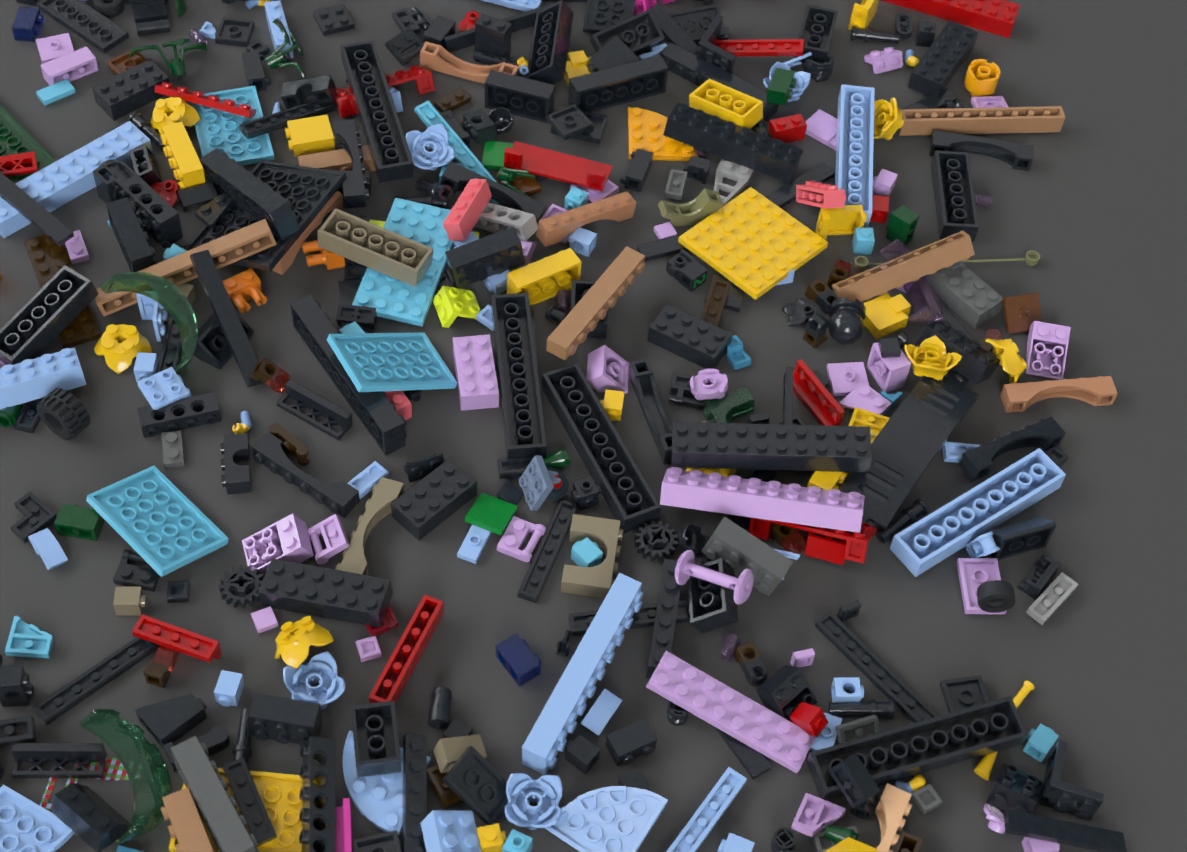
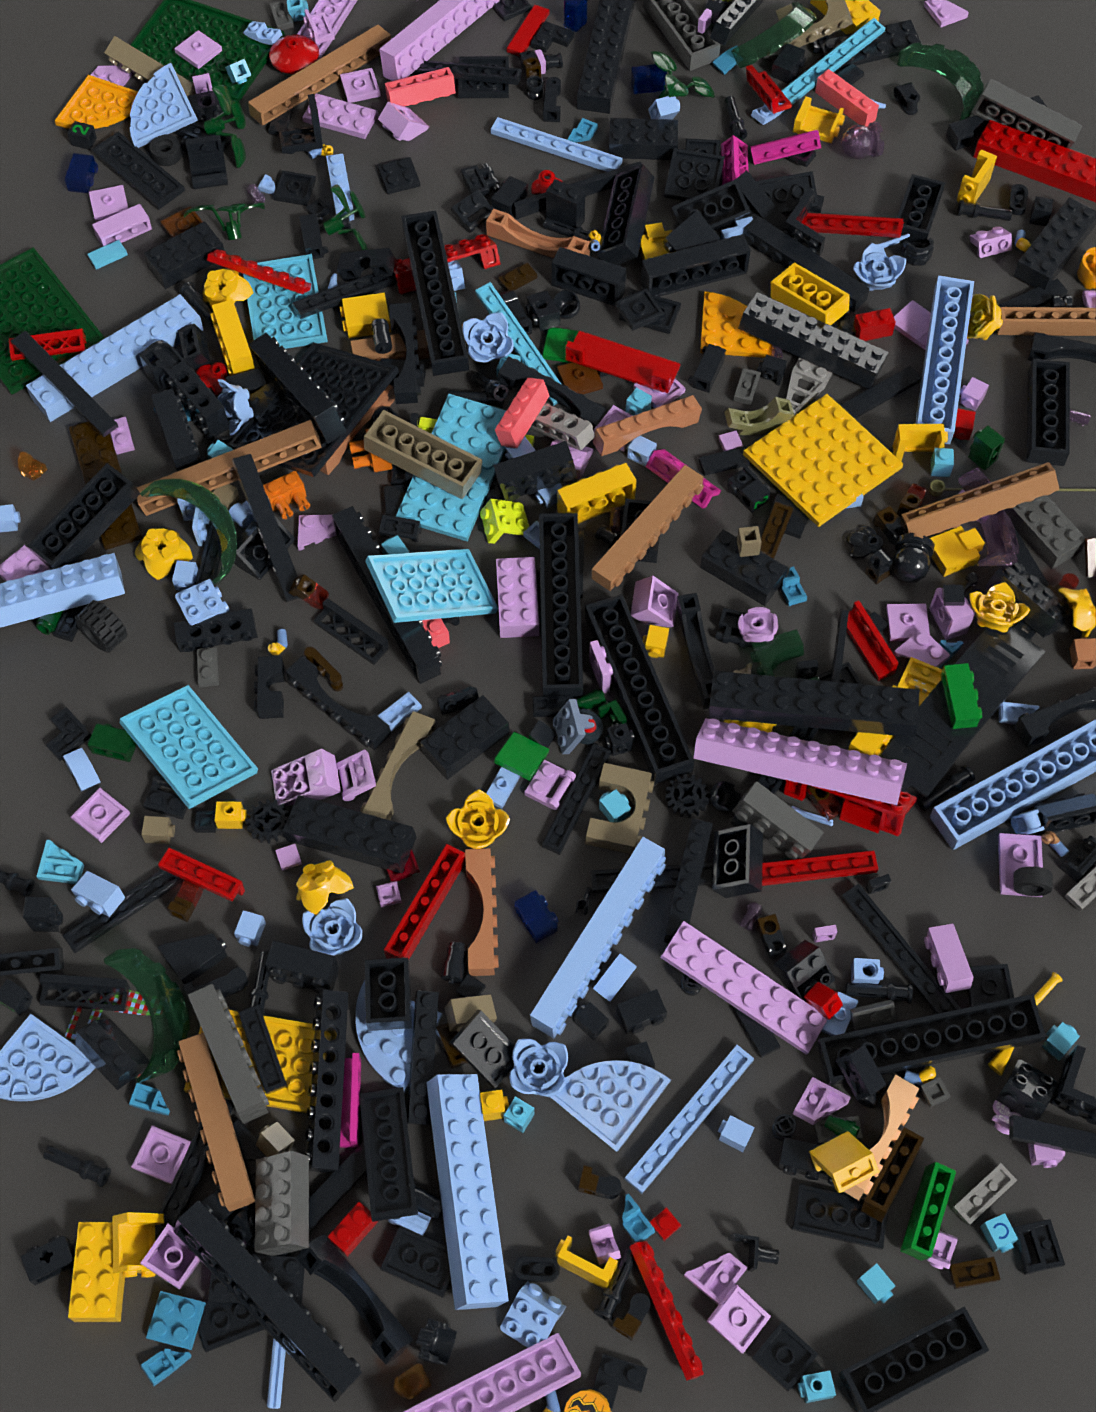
camera: 10 degrees right, 10 degrees up
(69, 590) = (100, 815): none -> lavender plate
(70, 664) = (97, 894): none -> light blue brick
(189, 212) = (236, 405): none -> light blue brick
(202, 309) = (241, 514): none -> light blue piece
(202, 583) = (230, 815): none -> yellow brick
(272, 321) = (314, 529): none -> lavender wing
(327, 150) = (381, 336): none -> black piece
(453, 562) = (477, 808): none -> yellow brick
(466, 696) = (481, 952): none -> nougat arch
(508, 175) = (569, 371): dark green plant -> none
(561, 428) = (600, 668): none -> lavender plate
(576, 468) = (614, 712): none -> dark green bracket
(607, 253) = (667, 466): none -> dark pink fence
(685, 568) = (766, 859): lavender hose -> none
(693, 309) = (749, 541): none -> dark tan brick
(781, 86) = (872, 275): dark green brick -> none
(792, 599) = (819, 868): none -> red plate
(820, 195) = (900, 410): coral brick -> none
(908, 433) = (961, 696): none -> green brick
(925, 673) = (948, 958): none -> lavender brick
(1008, 562) = (1051, 838): none -> arm

